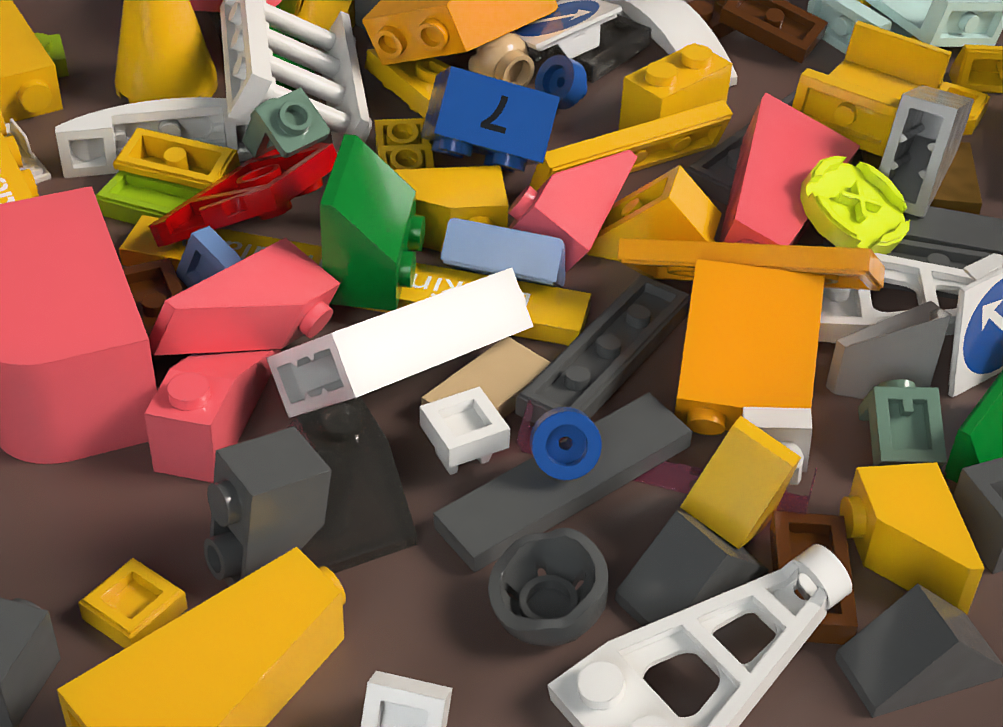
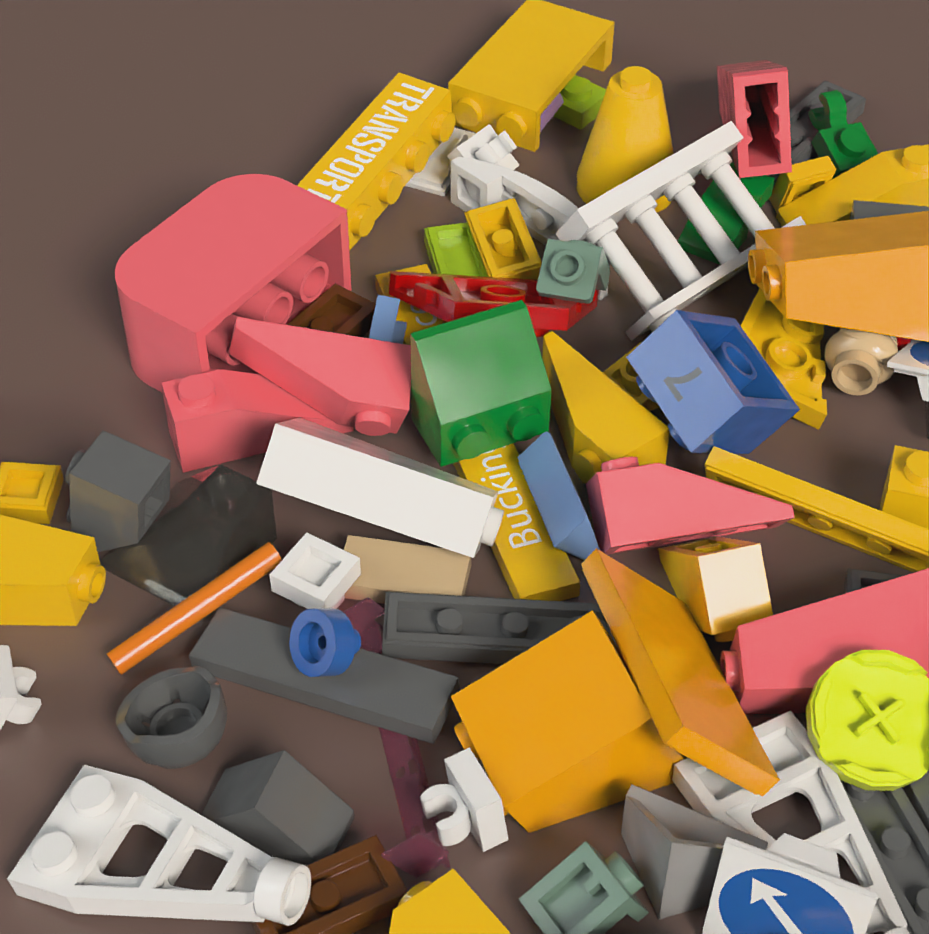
camera: 60 degrees right, 5 degrees up
(43, 116) = (488, 147): none -> white tile
(423, 531) = (194, 608): none -> orange piece
(562, 78) = (885, 415): blue tile -> none
(742, 483) = (358, 790): yellow slope -> none

